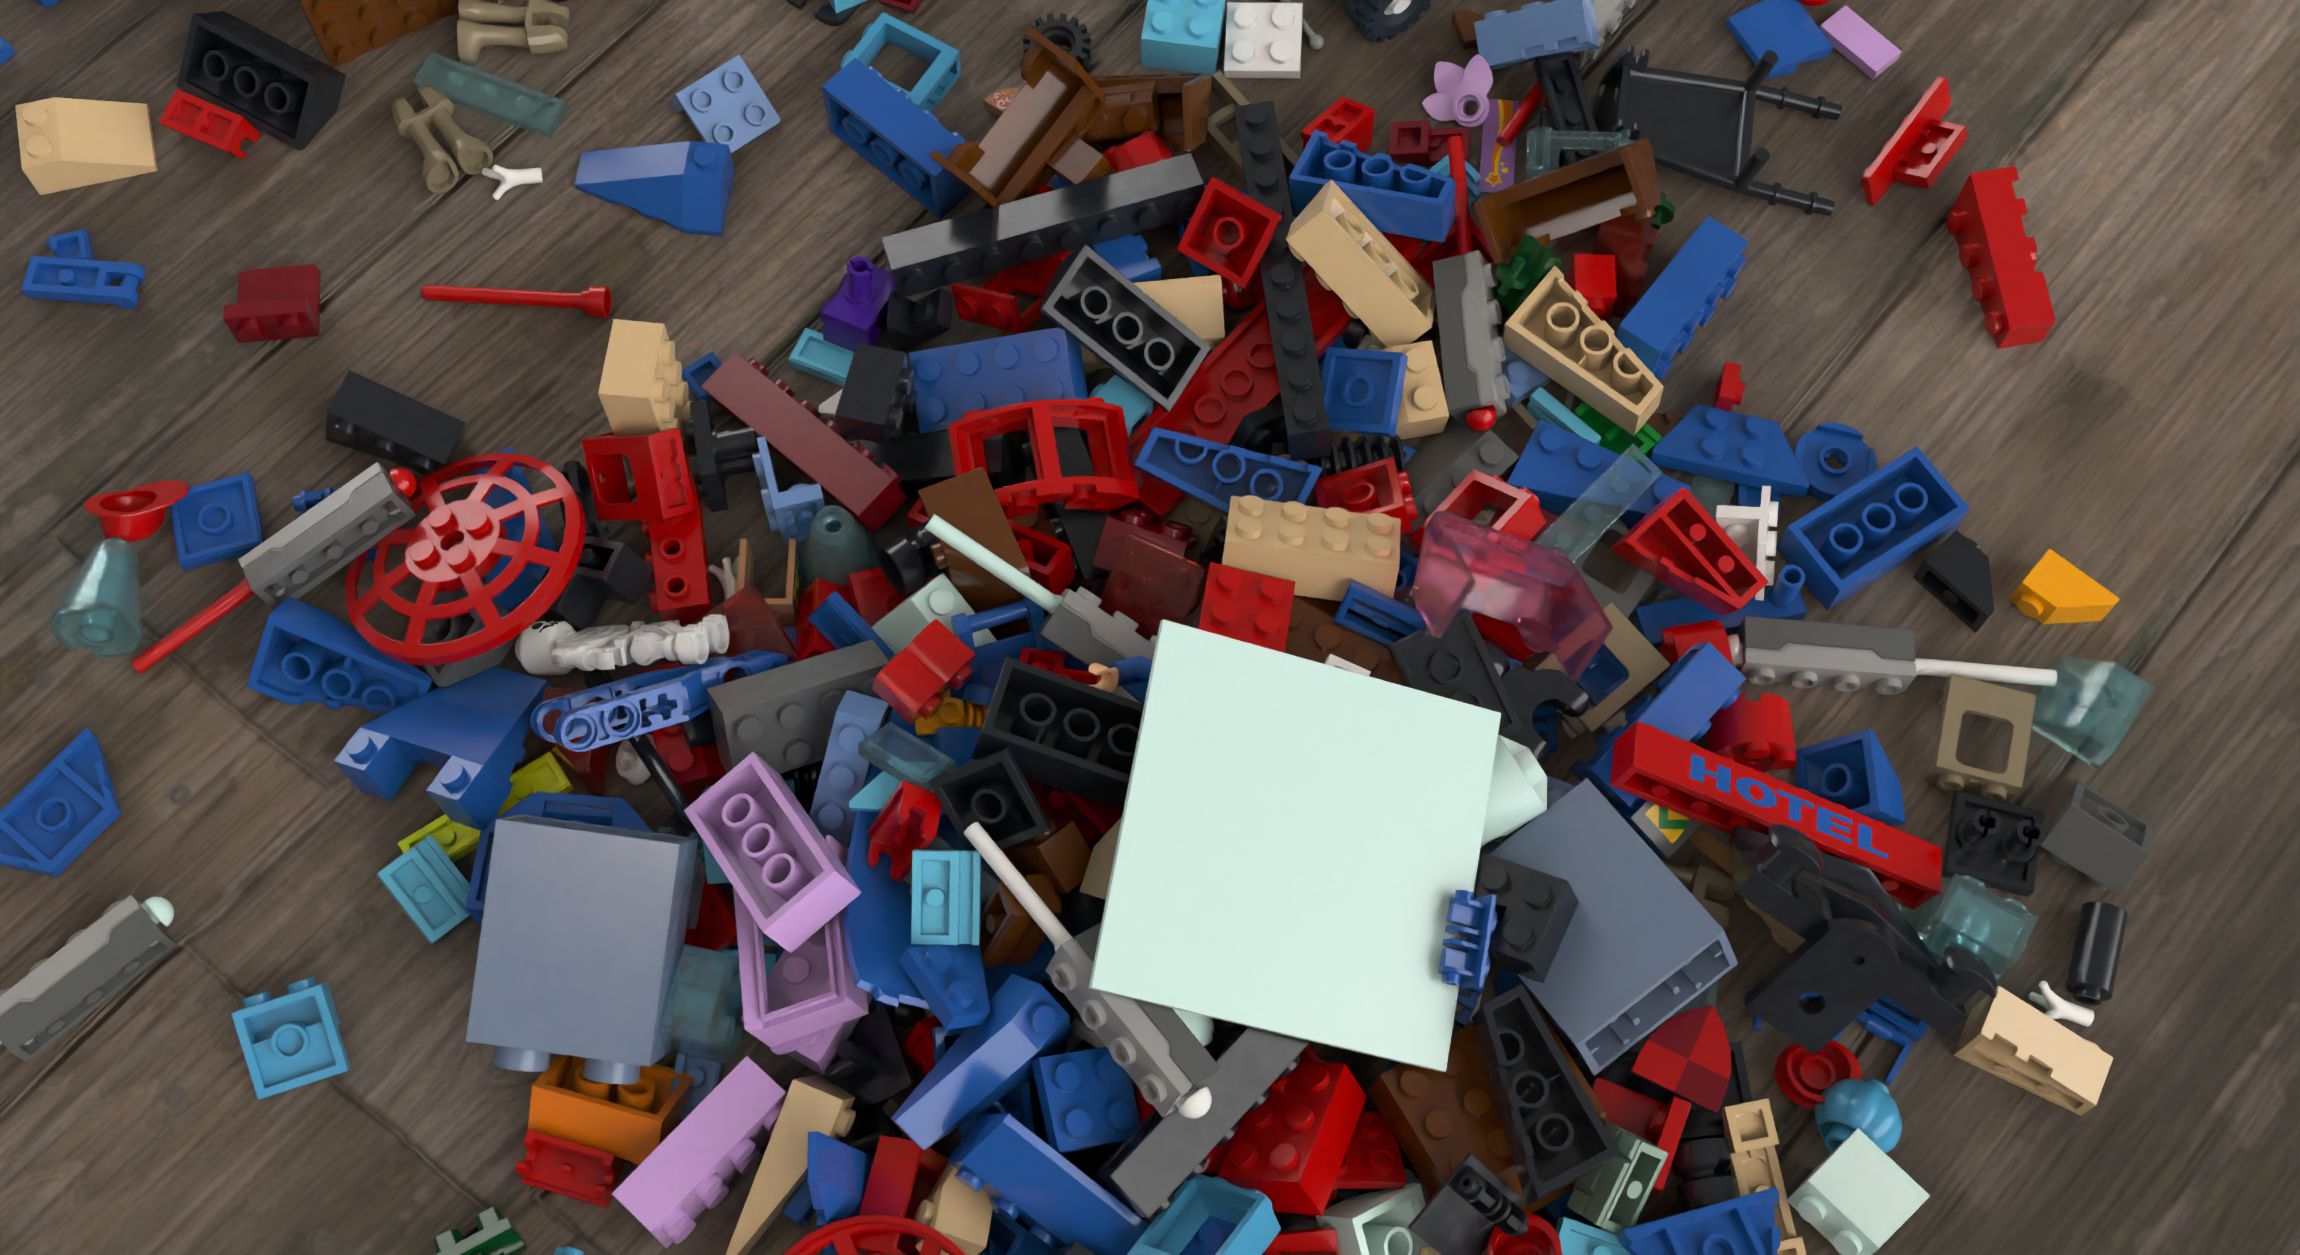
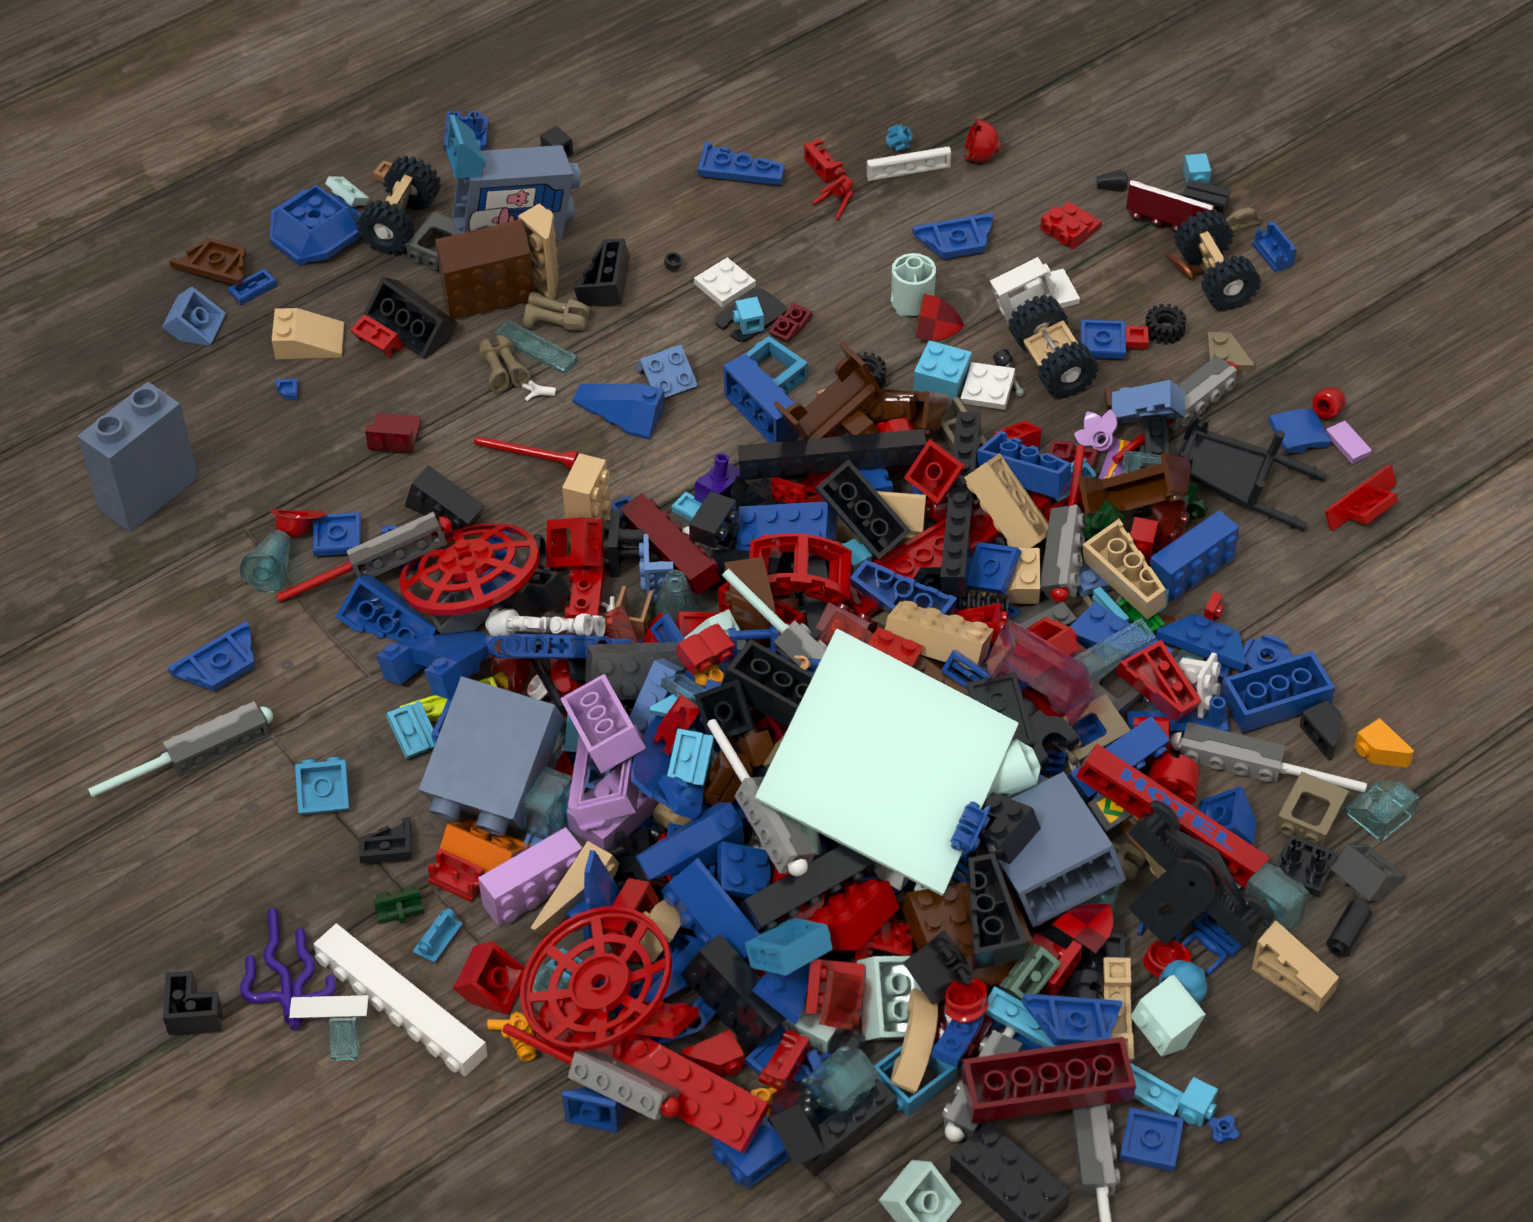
camera: 15 degrees right, 15 degrees down
(83, 281) = (291, 404): blue plate -> none
(432, 1127) = (387, 844): none -> black wing
(909, 560) = (711, 605): black wheel -> none
(2001, 258) = (1397, 566): red wedge -> none
(2061, 1008) = (1320, 953): white bar -> none

